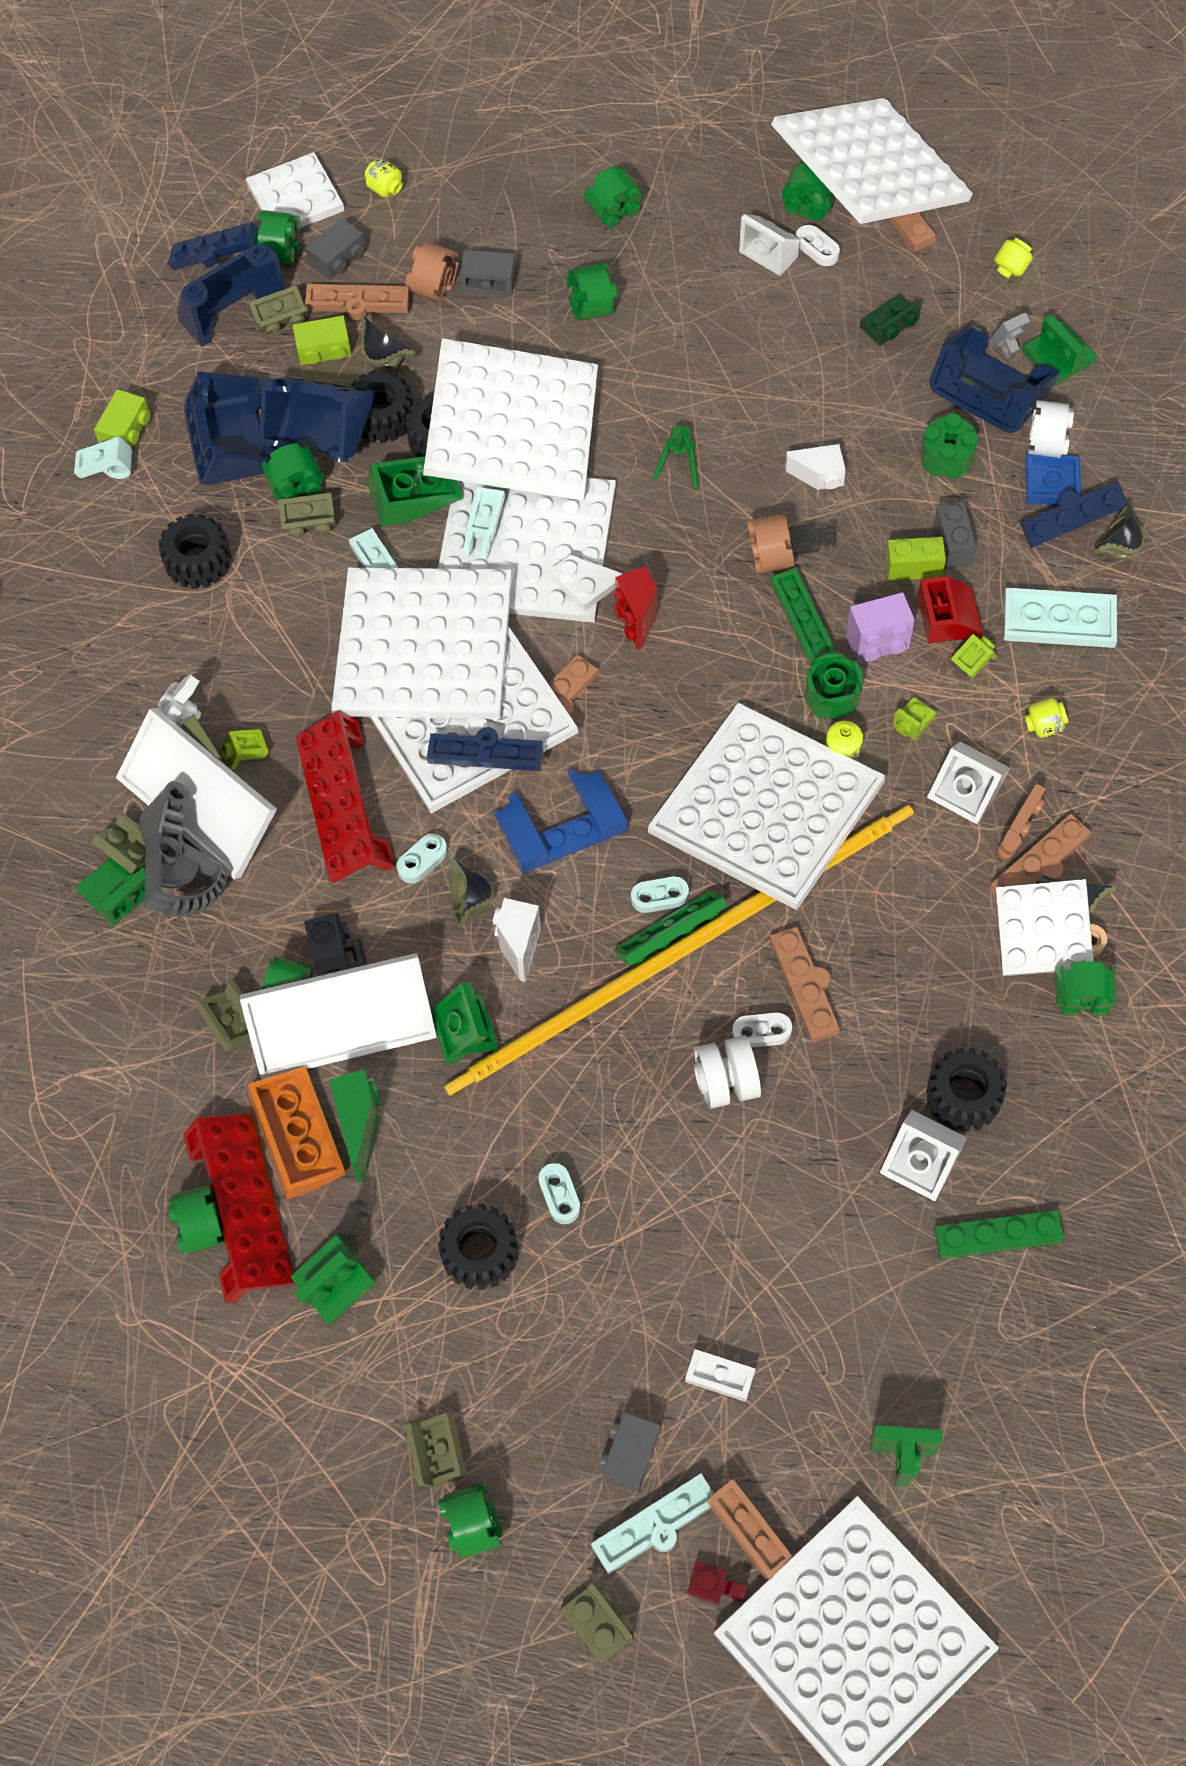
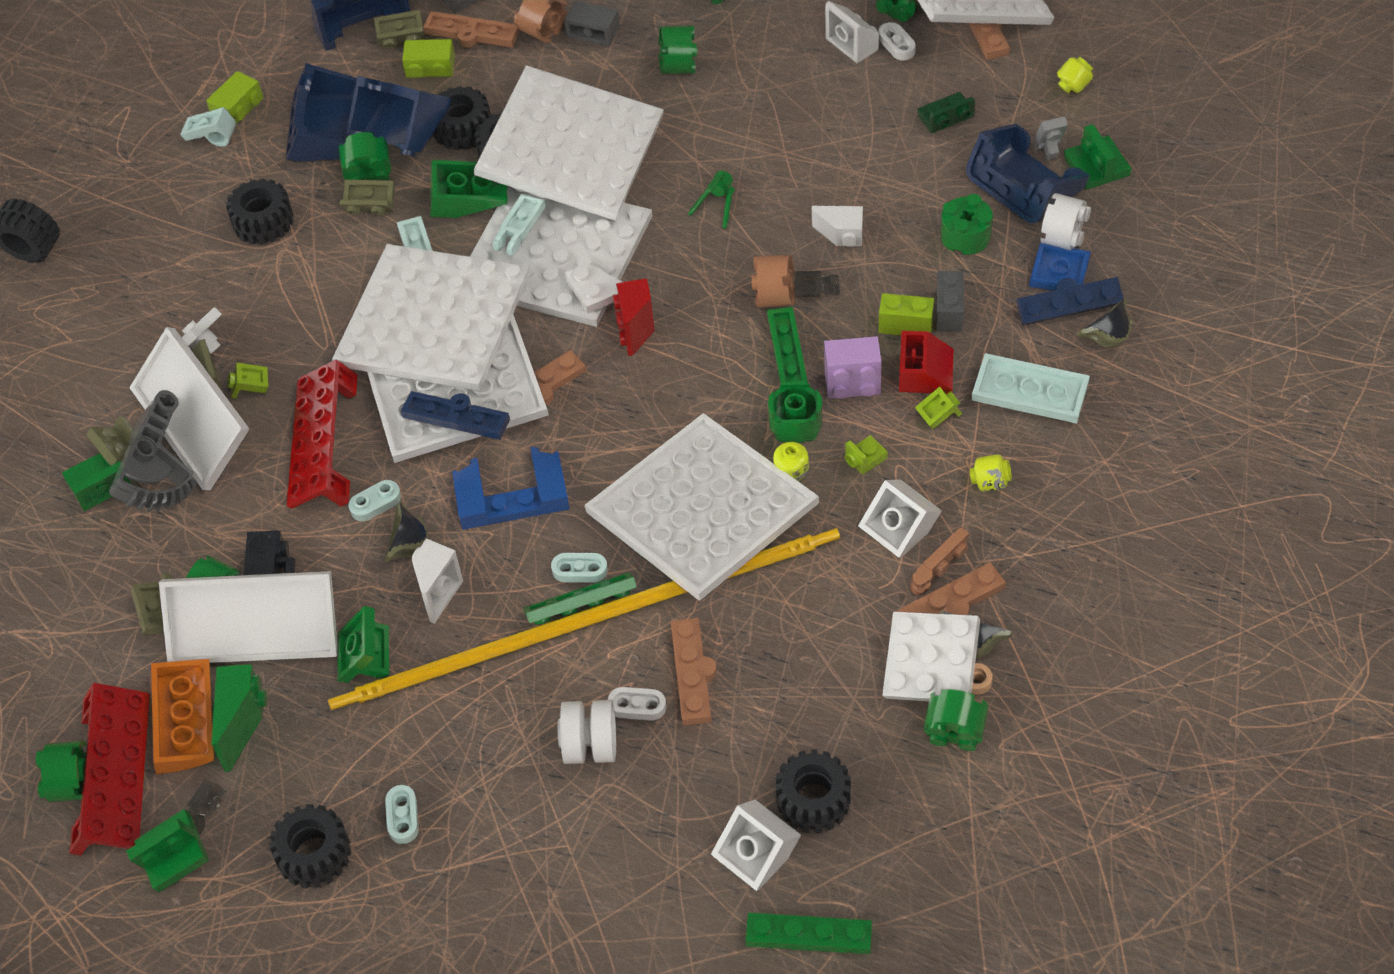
camera: 15 degrees right, 10 degrees down
(381, 348) = (477, 71): black hat -> none

